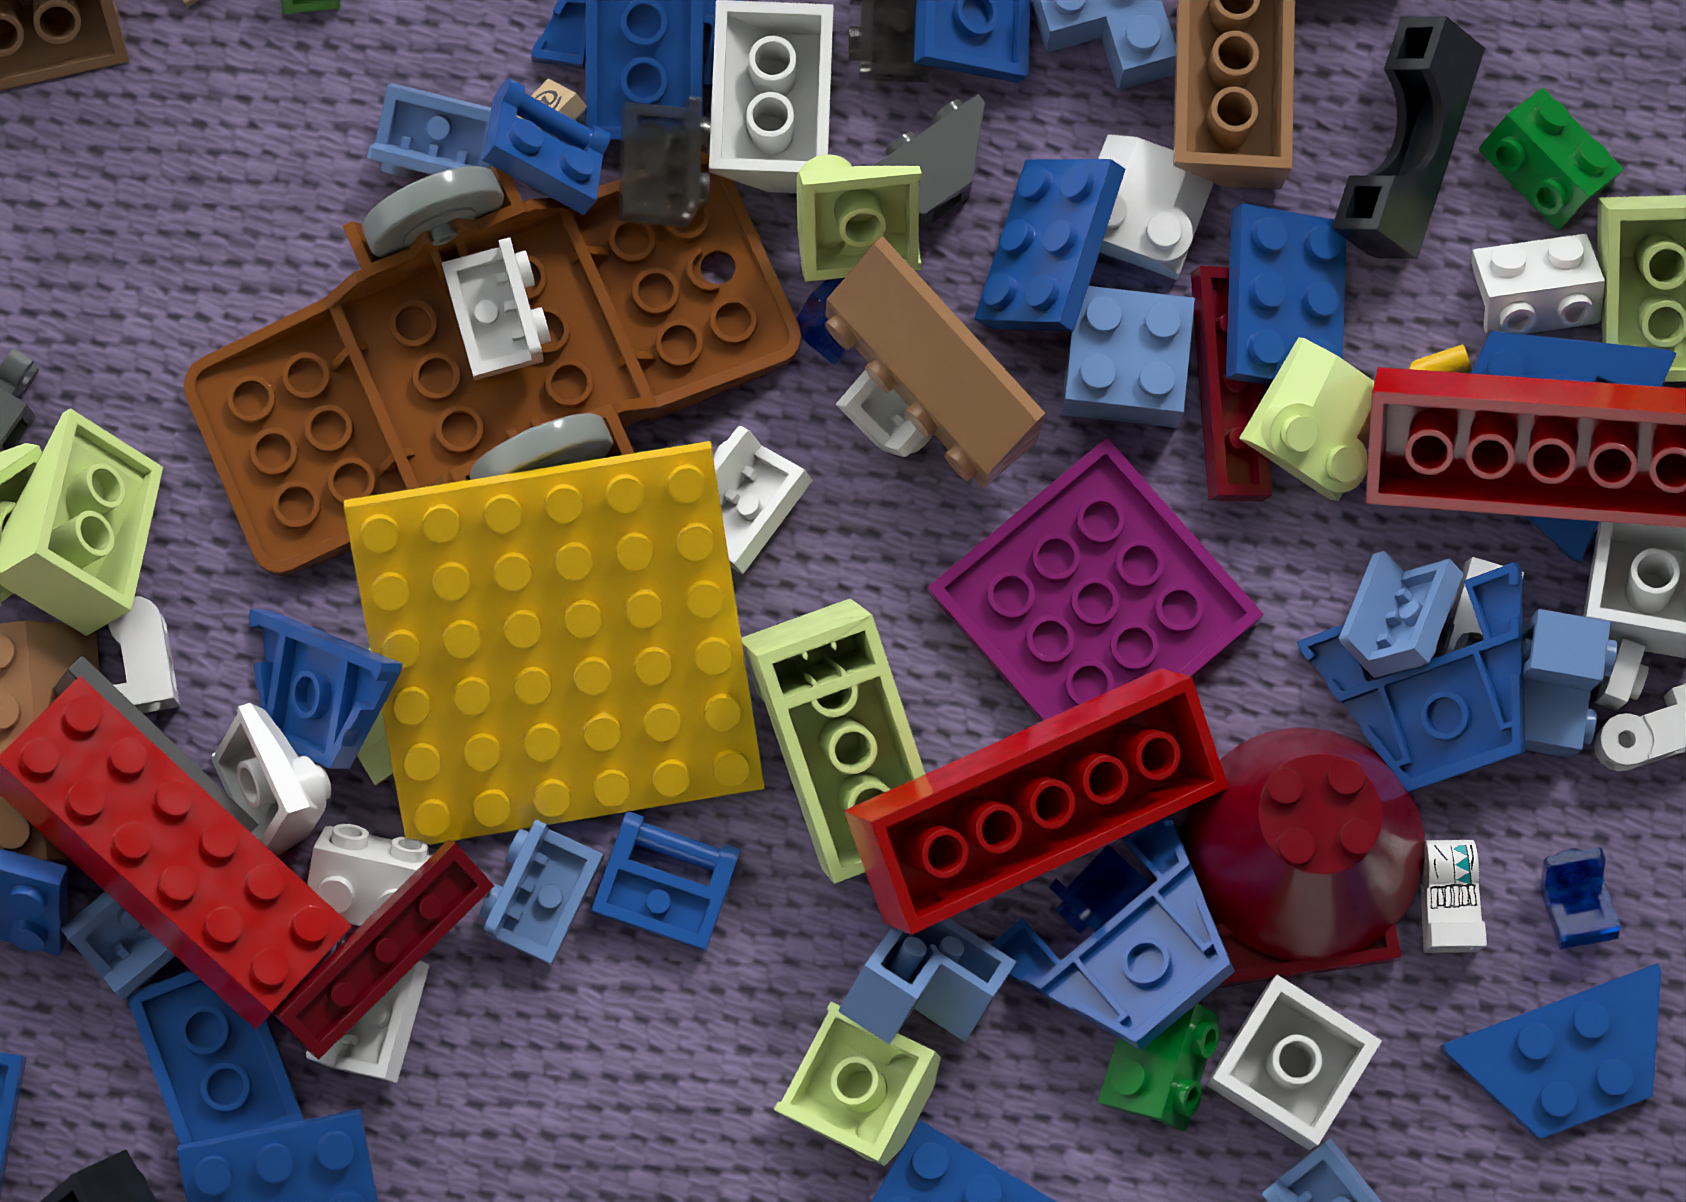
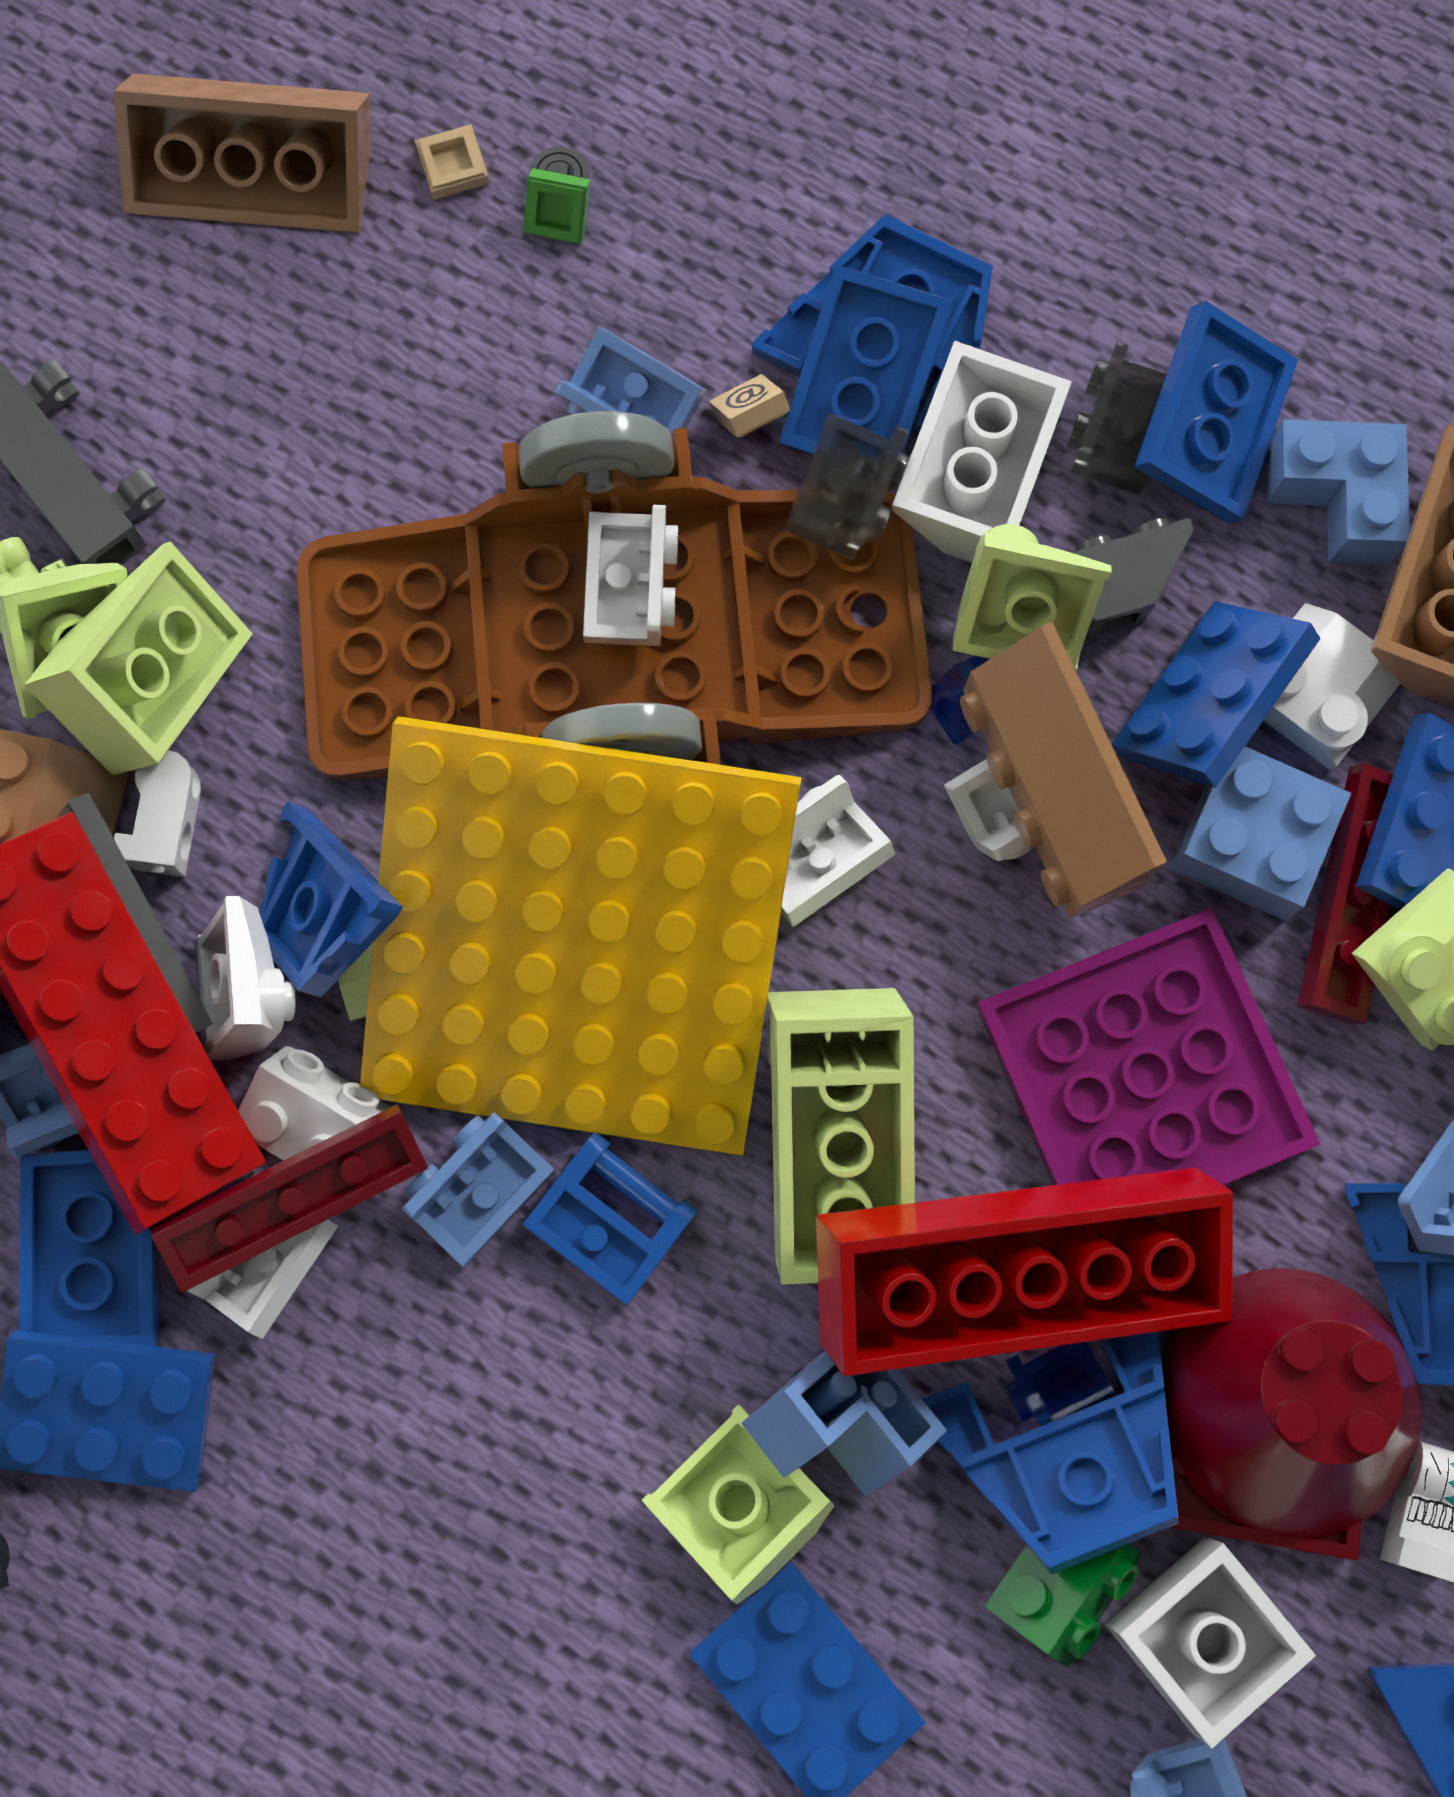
camera: 20 degrees right, 0 degrees up
(537, 157) = (733, 432): blue plate -> none

